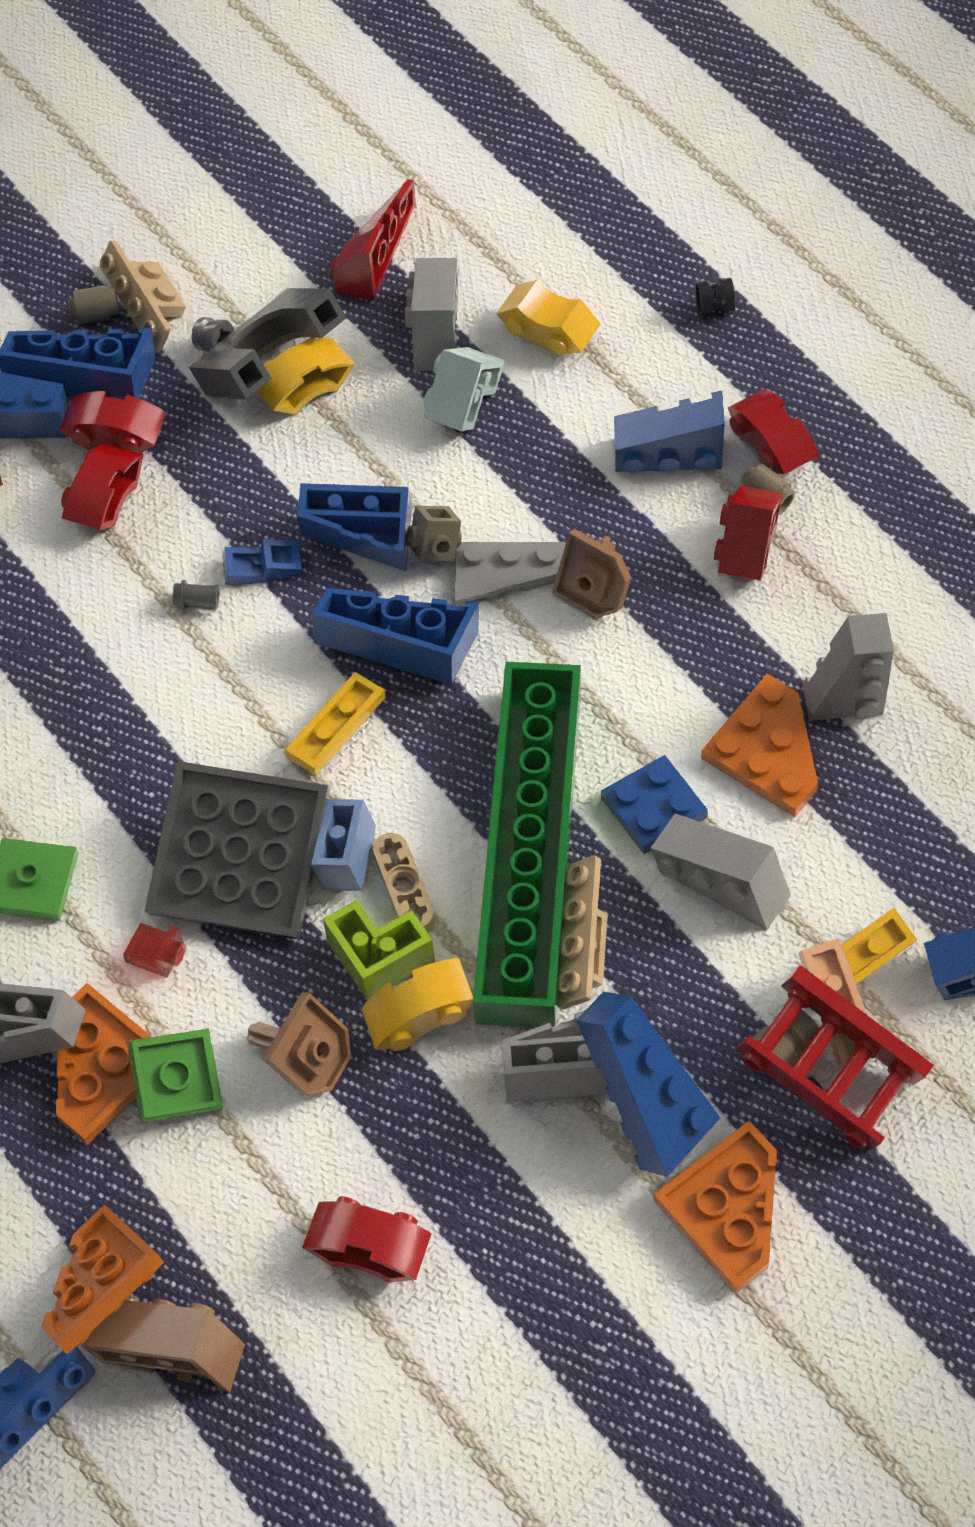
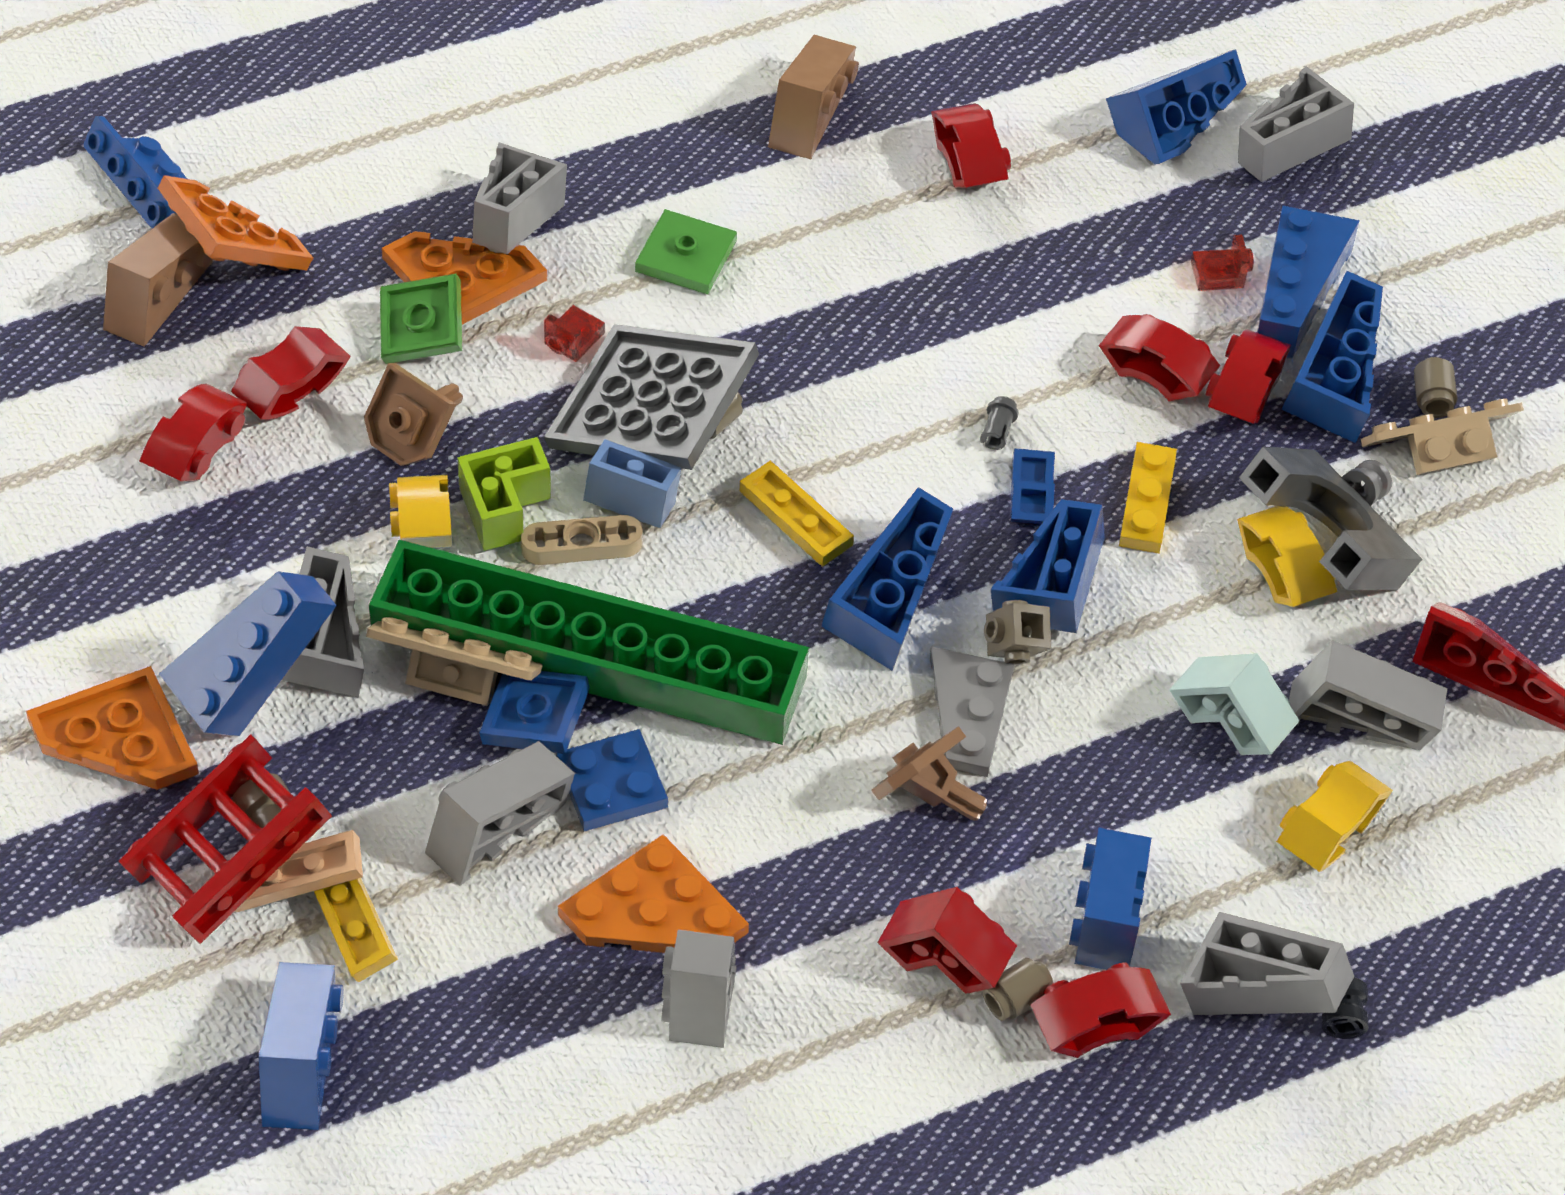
camera: 95 degrees right, 5 degrees down
(250, 483) = (1148, 497): none -> yellow plate
(268, 1177) = (289, 372): none -> red brick
(623, 864) = (535, 711): none -> blue plate
(711, 334) = (1265, 970): none -> light grey wedge

